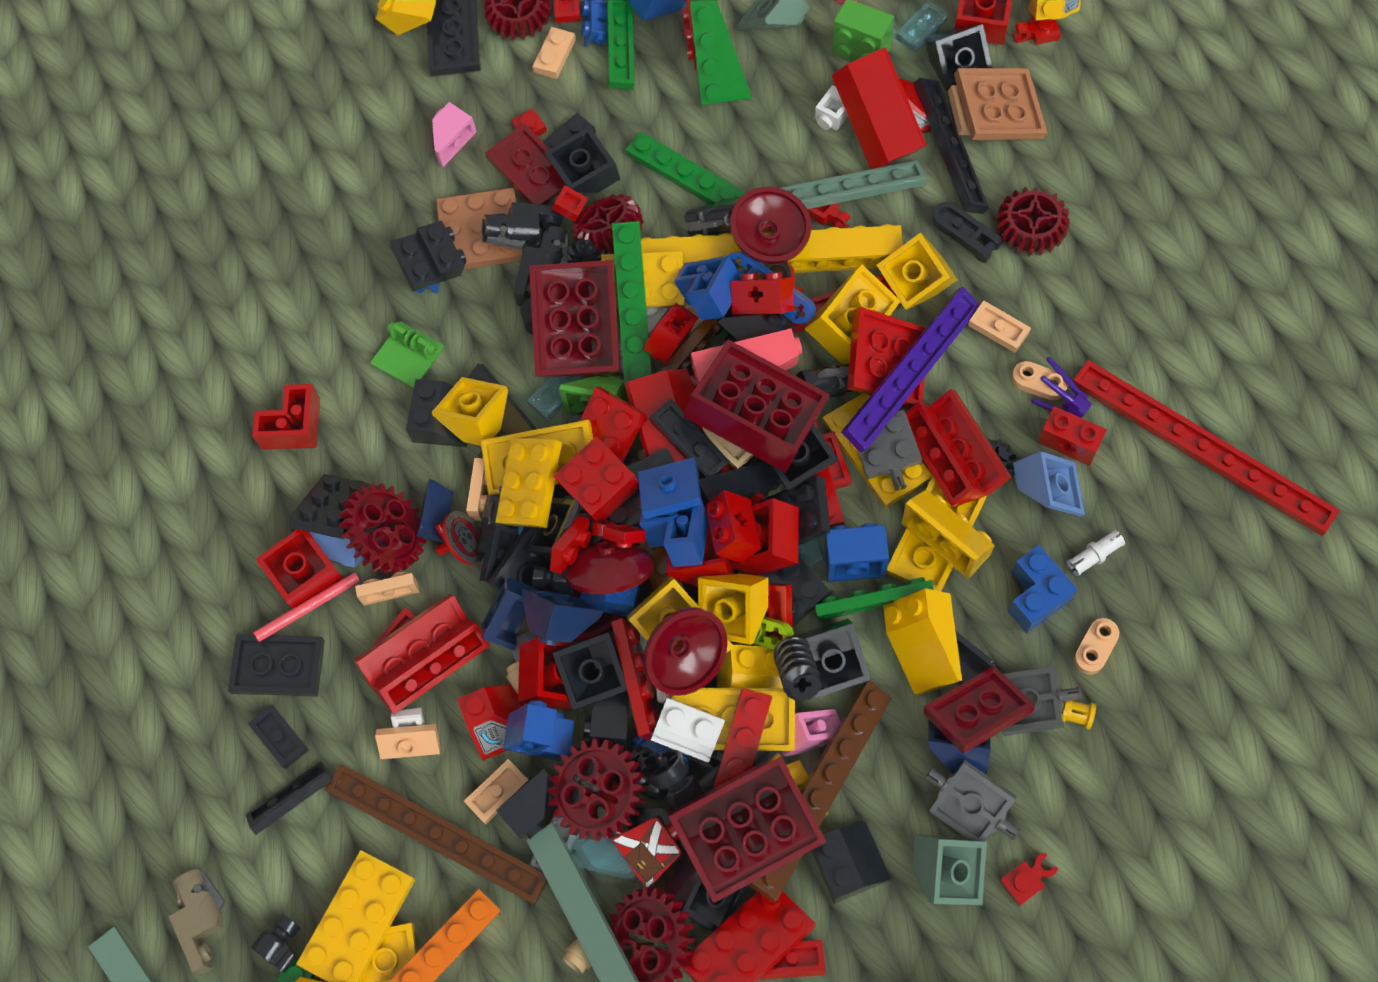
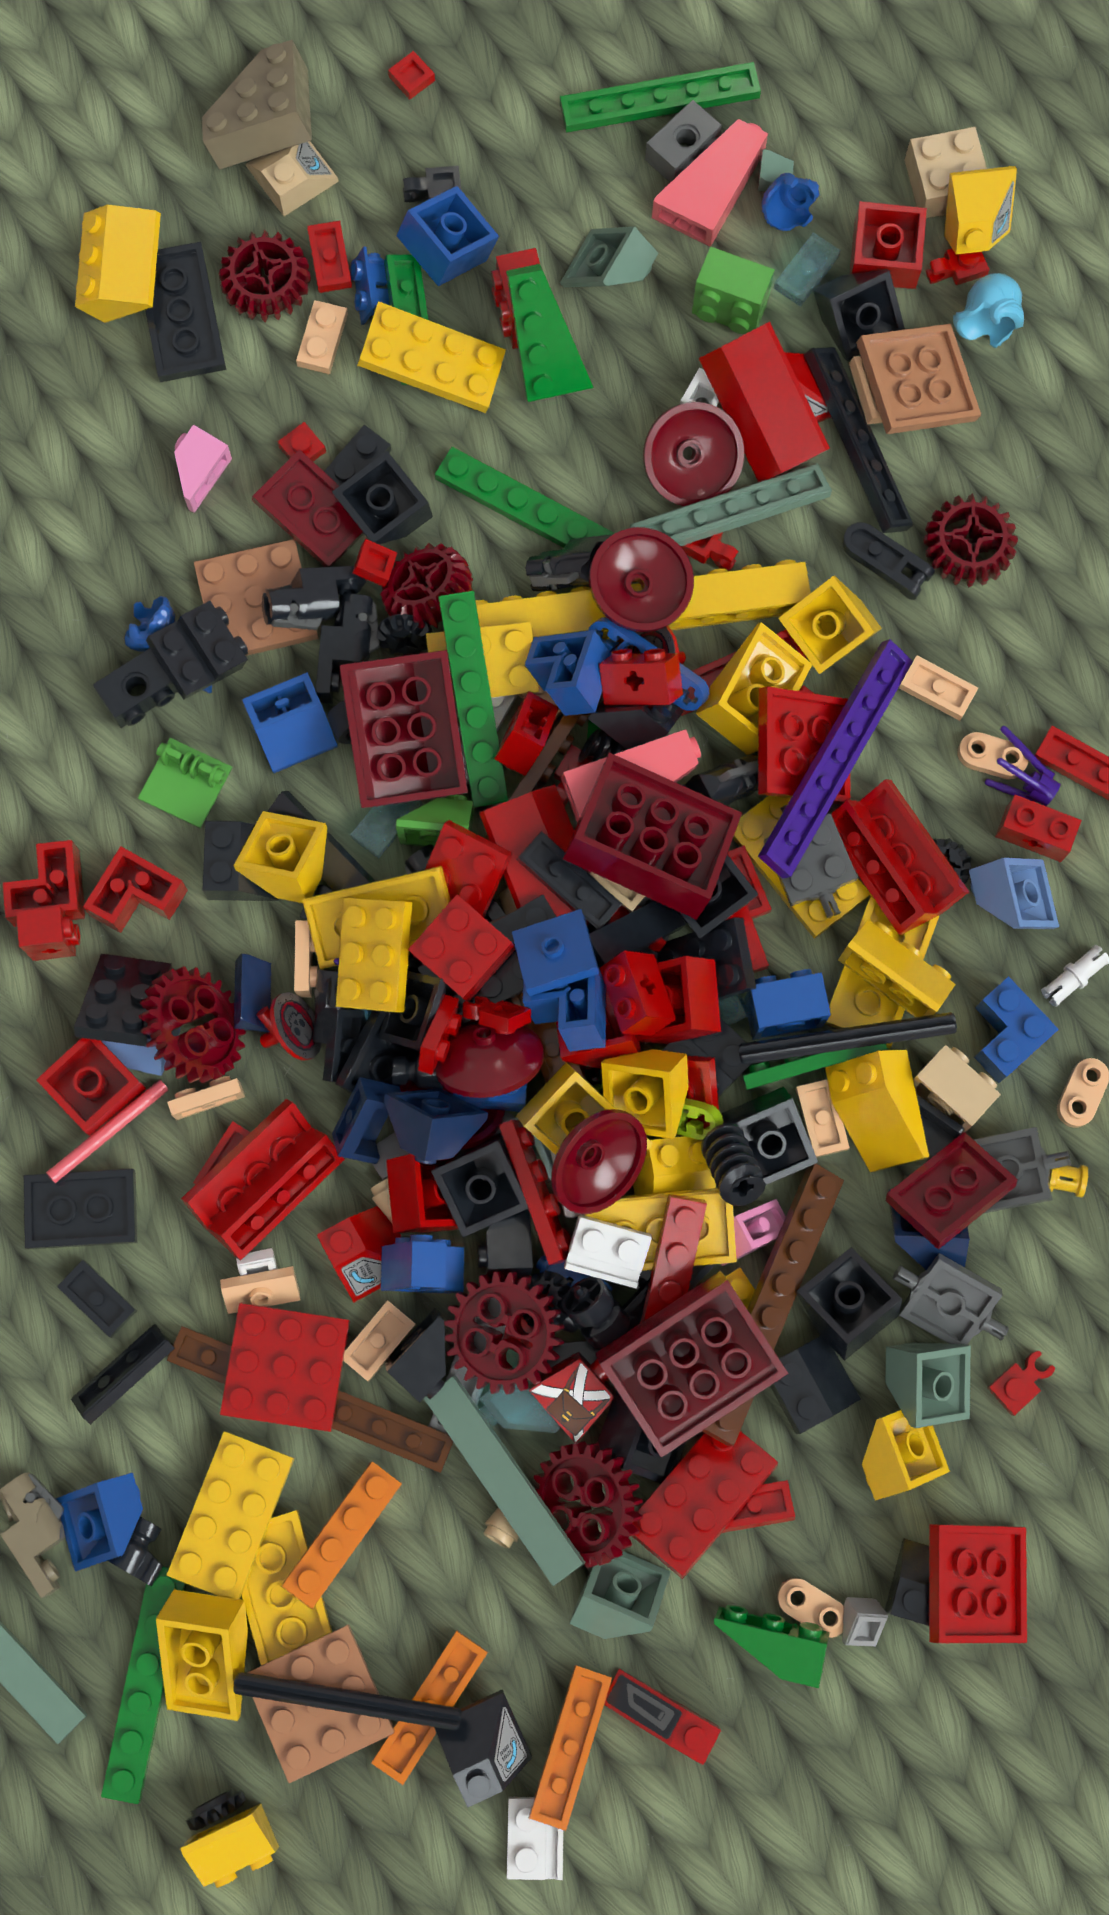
camera: 15 degrees left, 10 degrees up
(252, 912) = (100, 1520): none -> blue slope
(283, 452) = (47, 933): none -> red brick
(351, 422) = (131, 882): none -> red brick
(366, 283) = (116, 689): none -> black brick
(405, 229) = (151, 621): none -> blue hair
(418, 804) = (285, 1367): none -> red plate
(491, 314) = (290, 722): none -> blue slope
(632, 68) = (431, 357): none -> yellow plate
(836, 134) = (714, 459): none -> dark red dish
(877, 647) = (821, 1119): none -> light nougat plate
(887, 796) = (849, 1303): none -> black slope
(902, 579) = (848, 1038): none -> black axle
(921, 928) = (901, 1456): none -> yellow slope
(989, 627) = (955, 1087): none -> tan brick
(1060, 59) = (991, 309): none -> medium azure hair

